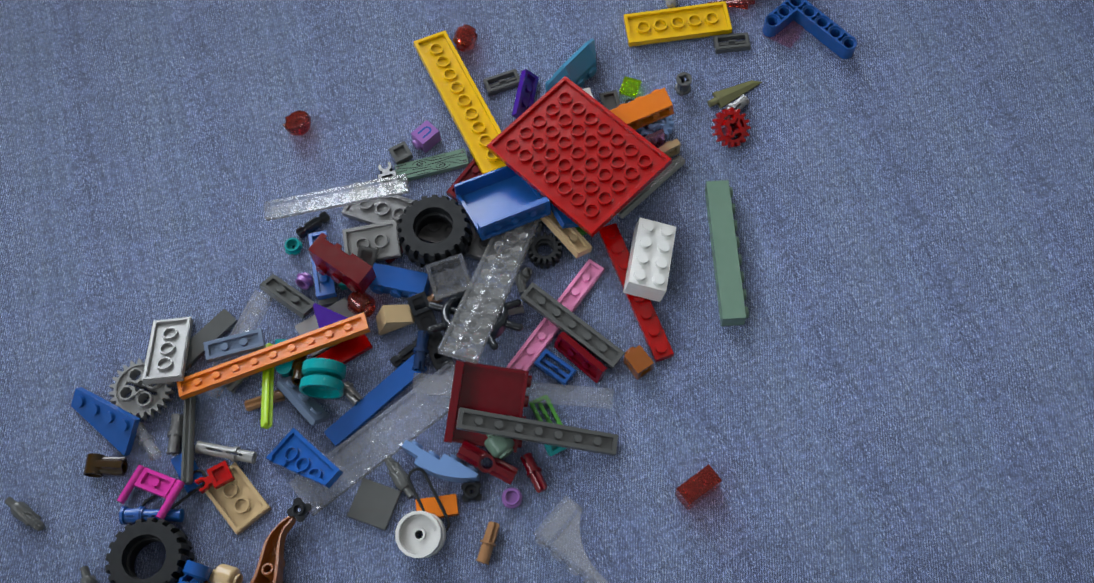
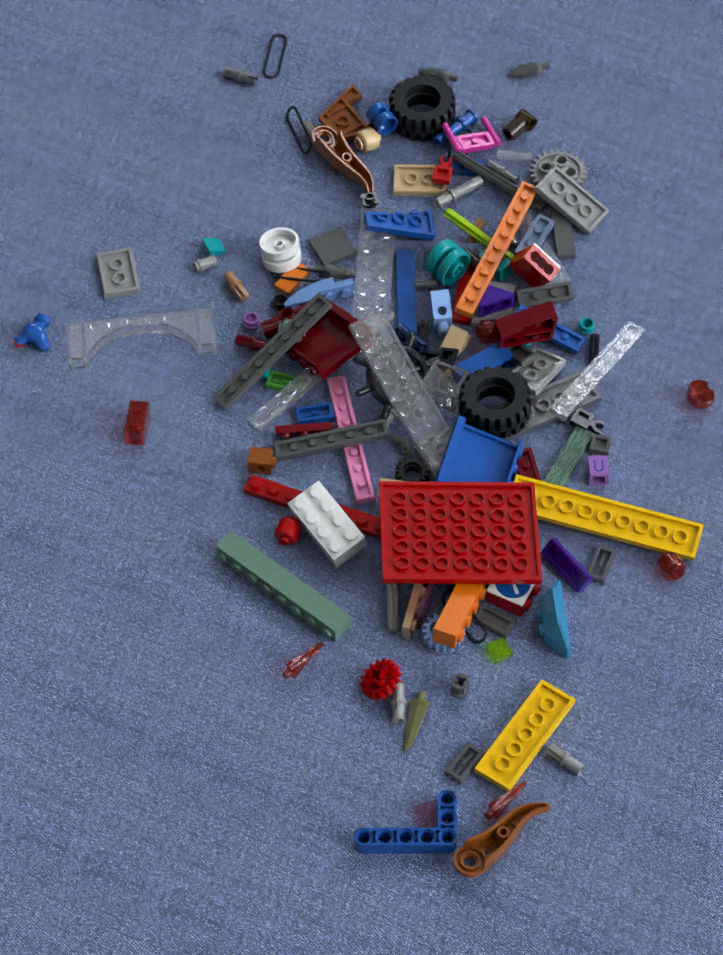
camera: 130 degrees right, 10 degrees down
(108, 419) = (555, 142): blue wing -> none
(270, 311) = (534, 266): none -> red piece
(375, 351) = (440, 311): none -> light blue torso
(679, 286) = (288, 531): none -> red head
(774, 191) = (296, 665): none -> clear red piece

